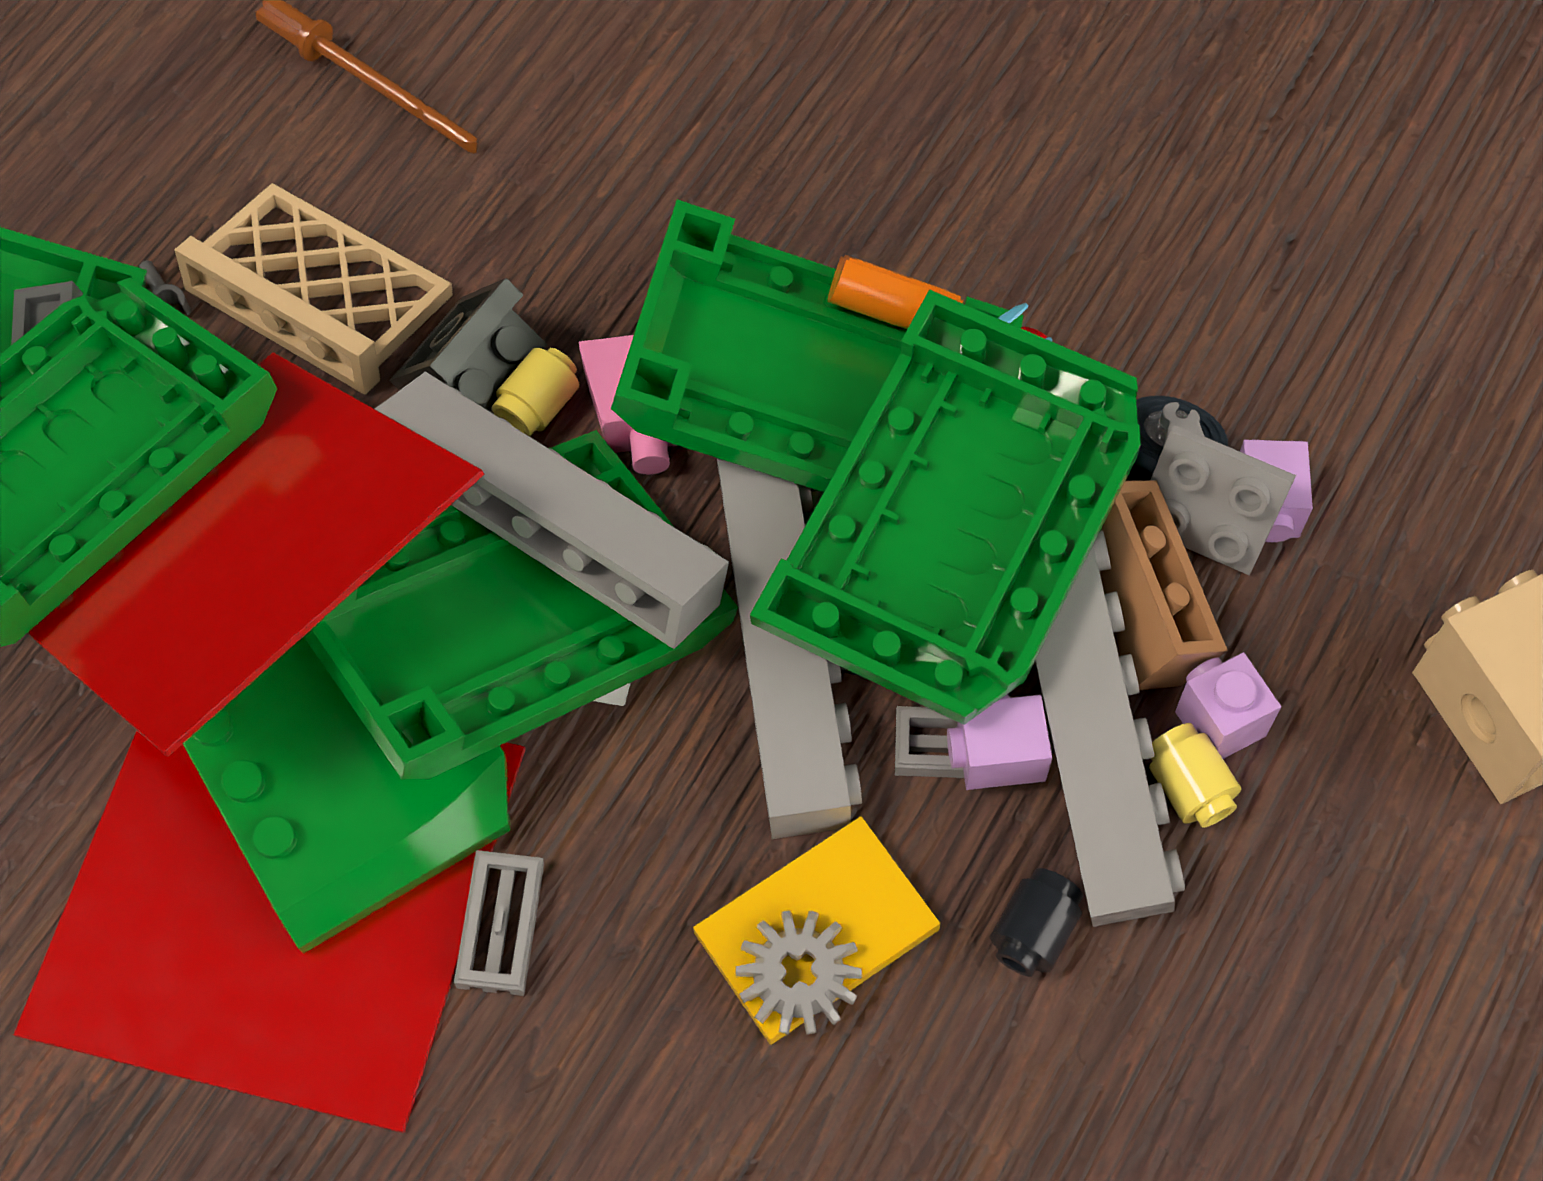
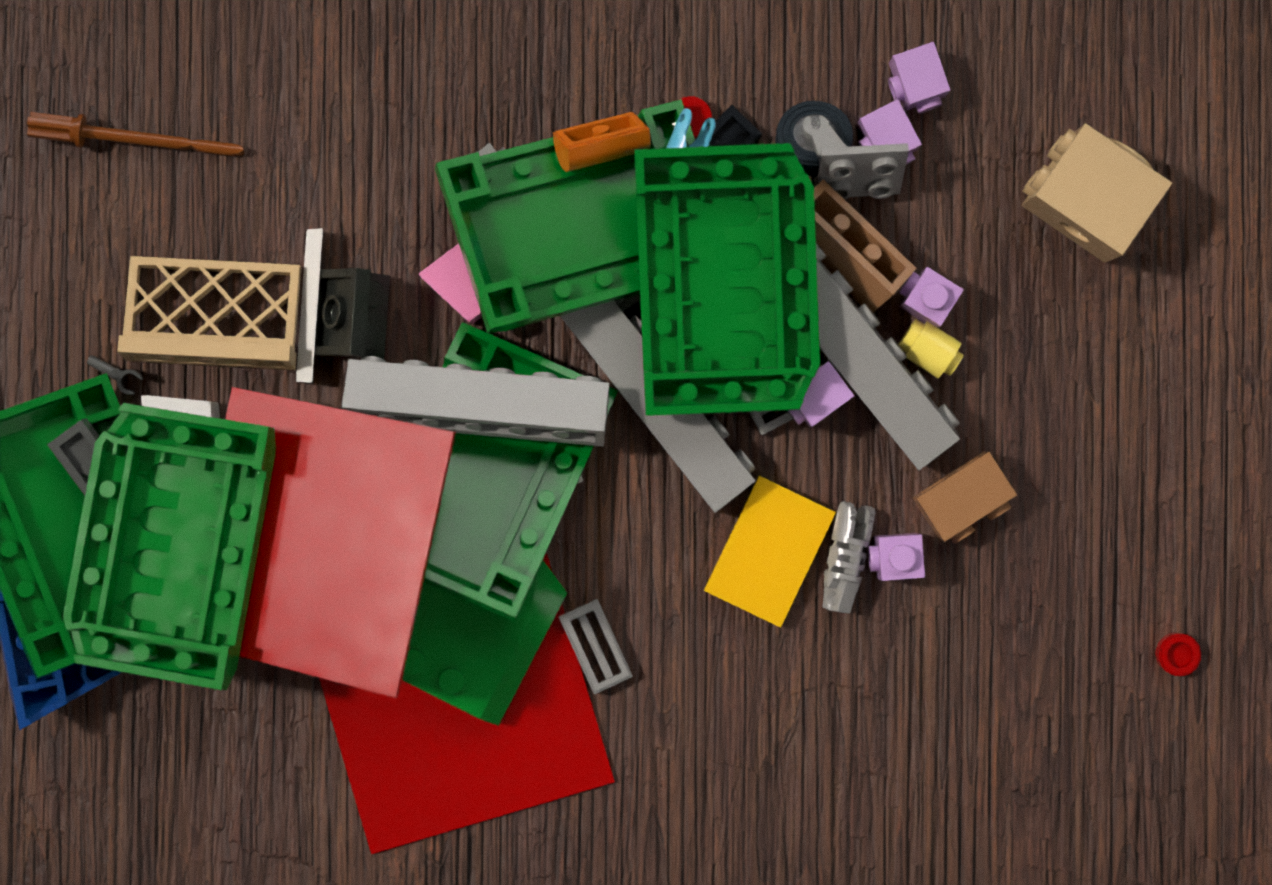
camera: 35 degrees left, 25 degrees up
(430, 329) = (309, 305): none -> white sticker
(536, 390) = (407, 314): light yellow brick -> none
(801, 999) = (766, 570): light grey gear -> none
(920, 993) = (847, 556): none -> light grey hinge
(994, 1028) = (897, 556): none -> lavender brick
(1037, 922) = (888, 484): black brick -> none
(1140, 1002) = (965, 497): none -> medium nougat brick
(1347, 443) = (918, 78): none -> lavender brick

